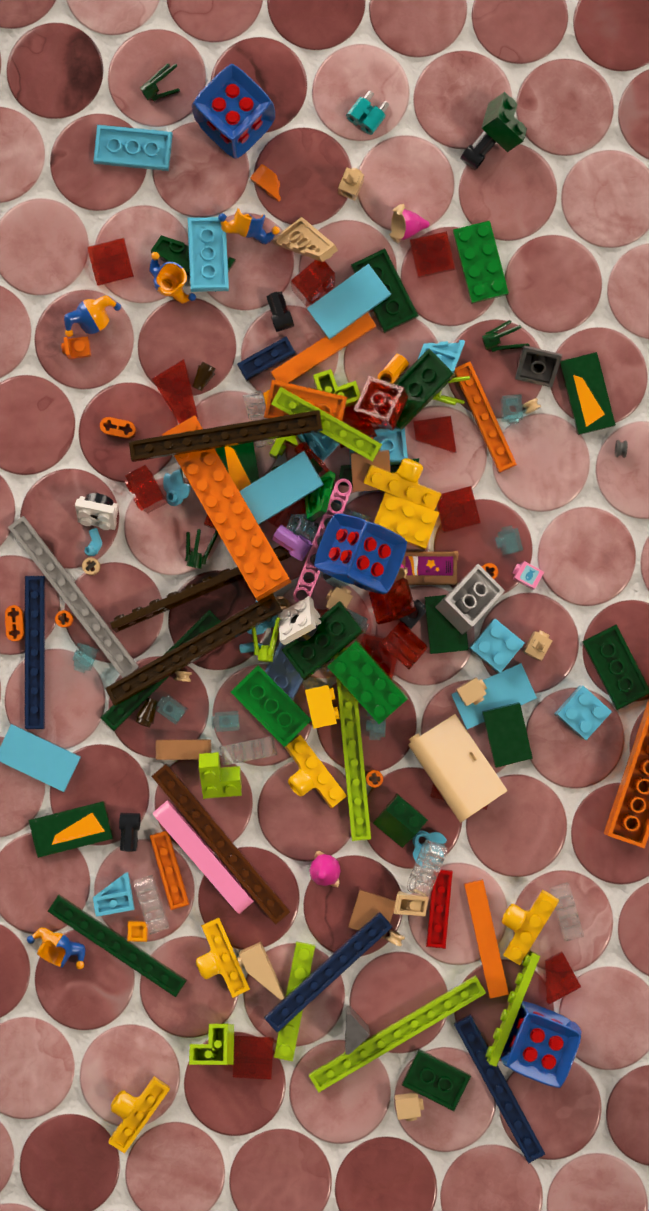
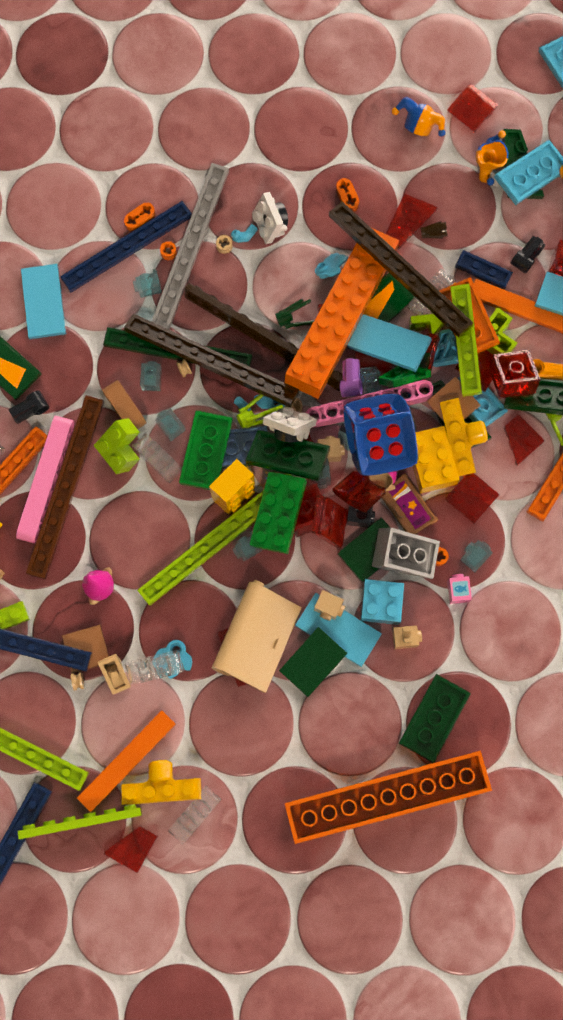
camera: 55 degrees right, 10 degrees down
(76, 347) = (387, 125): orange bracket -> none
(146, 489) = (313, 242): clear red brick -> none
(147, 713) = (134, 360): dark brown cone -> none
(312, 774) = (172, 522): yellow plate -> none
(378, 774) = (208, 575): orange bush -> none
(400, 821) = (180, 619): dark green slope -> none
(439, 910) = (126, 703): red tile -> none
(541, 1045) = (62, 865): blue piece -> none
(583, 712) = (376, 713): medium azure brick -> none

